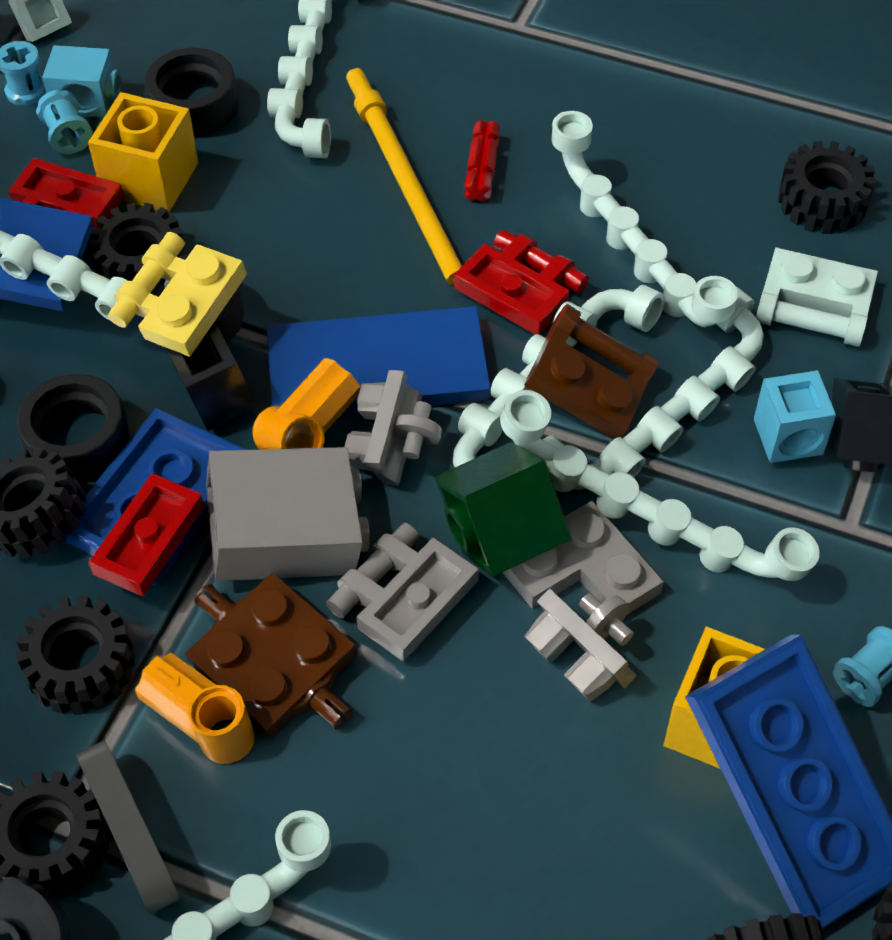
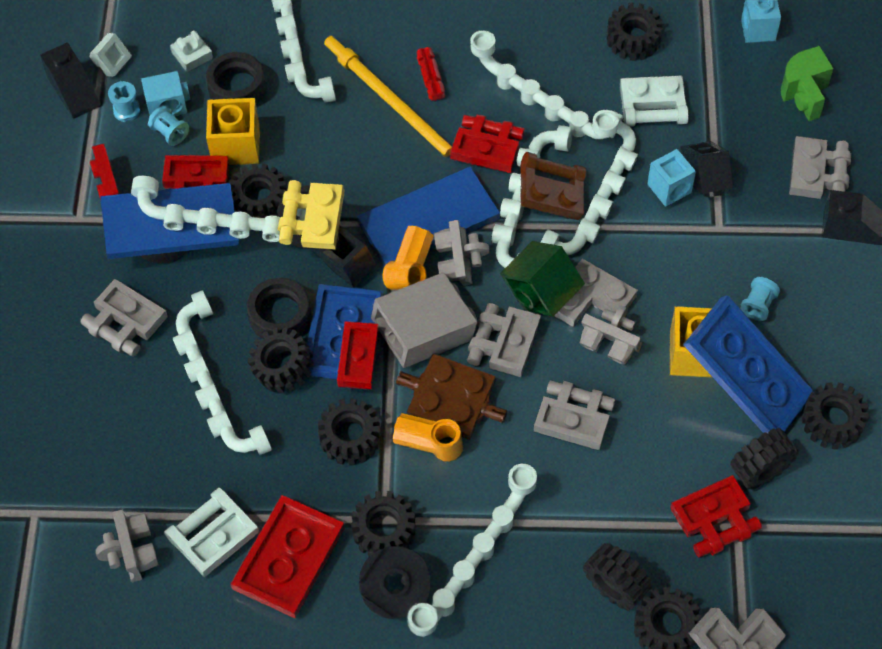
camera: 20 degrees left, 5 degrees up
(128, 827) = (425, 506): dark grey beam -> none
(154, 35) = (191, 51): none -> light aqua tile
(451, 769) = (573, 422): none -> light grey plate
(786, 557) = (697, 256): light aqua bar -> none

